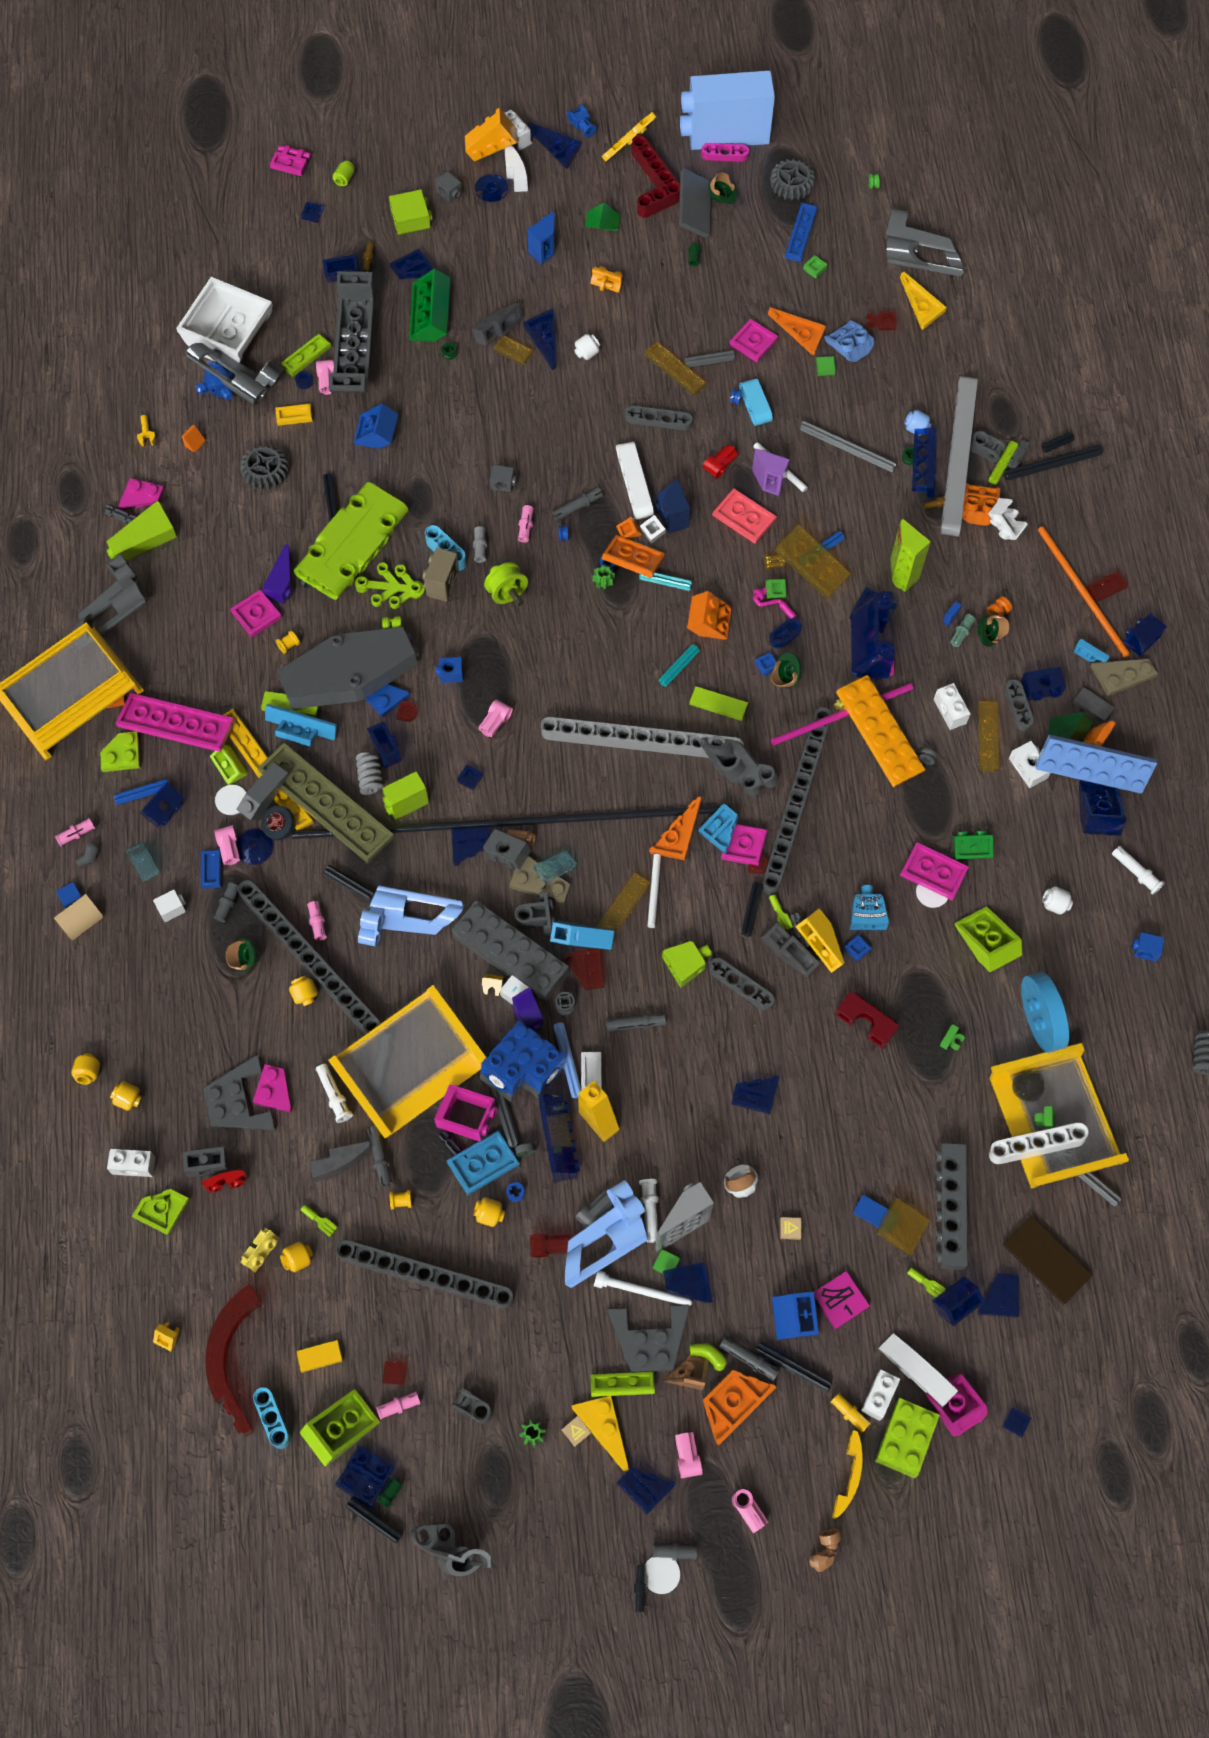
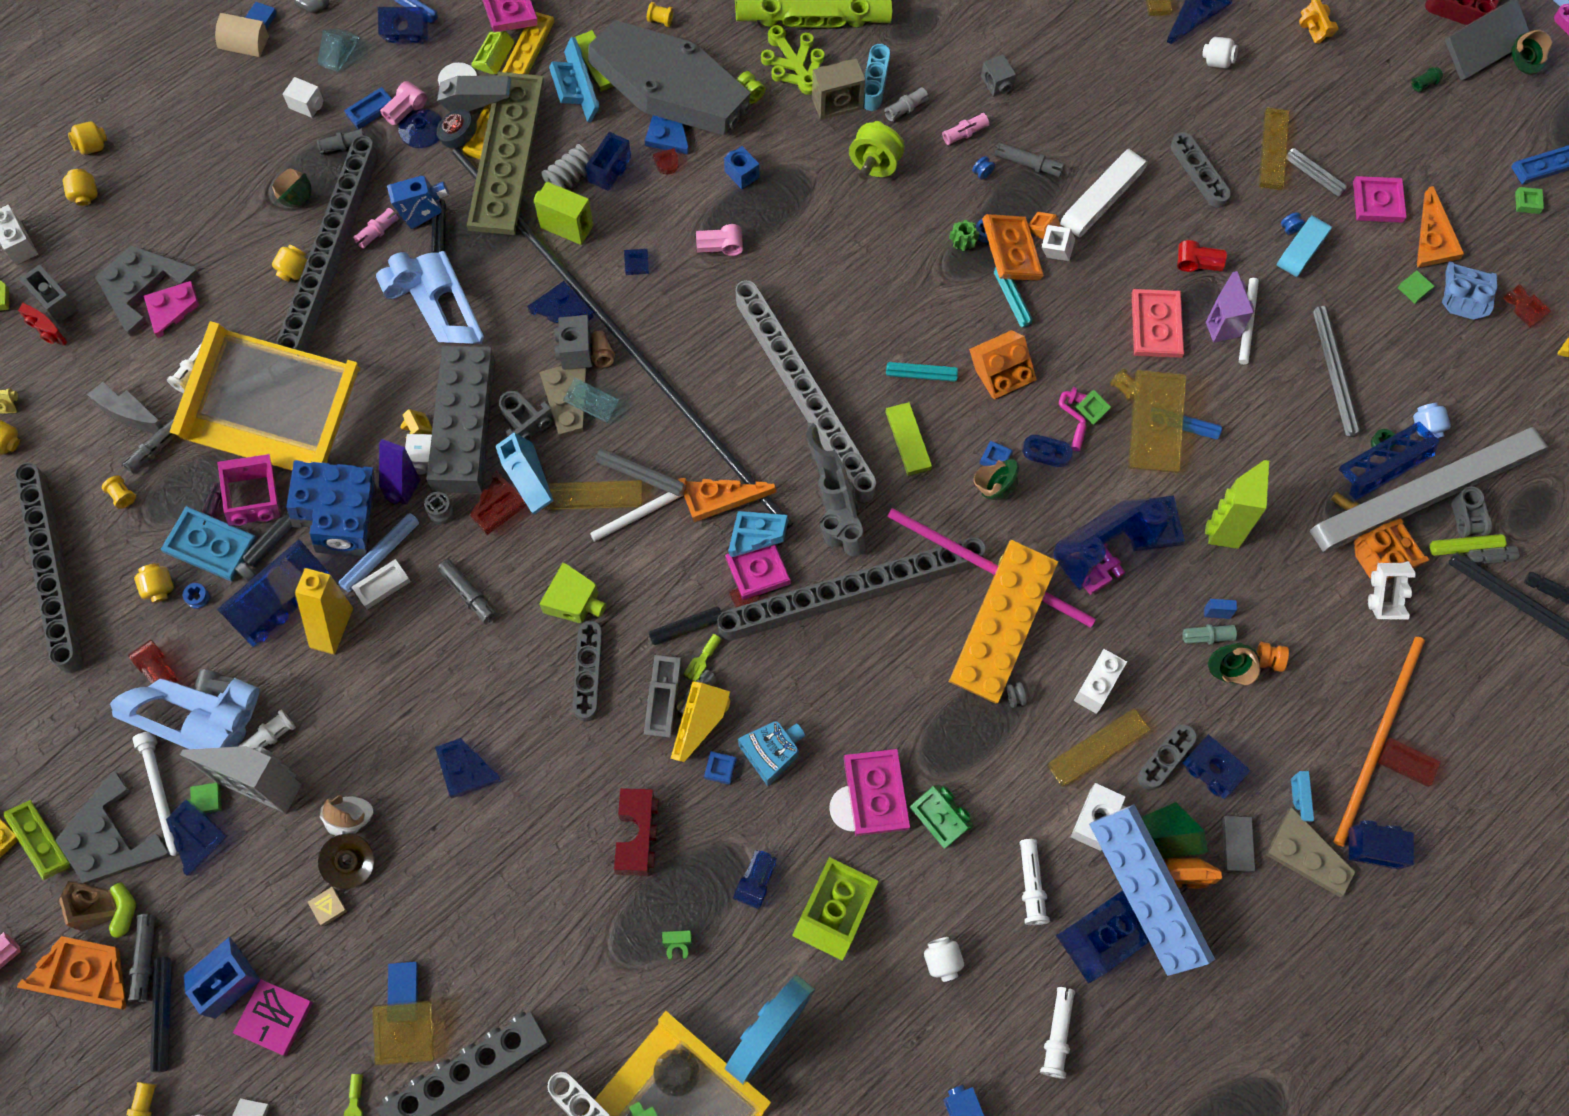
camera: 55 degrees right, 0 degrees up
(323, 878) = (417, 199): none -> blue torso
(323, 1223) = (53, 441): lime piece -> none
(629, 869) = (640, 472): none -> dark grey axle
(673, 508) = (1099, 246): dark blue slope -> none
(778, 1196) = (338, 872): none -> dark brown dish
(945, 976) = (753, 886): none -> clear blue piece
(1052, 829) = (1034, 895): none -> white pin

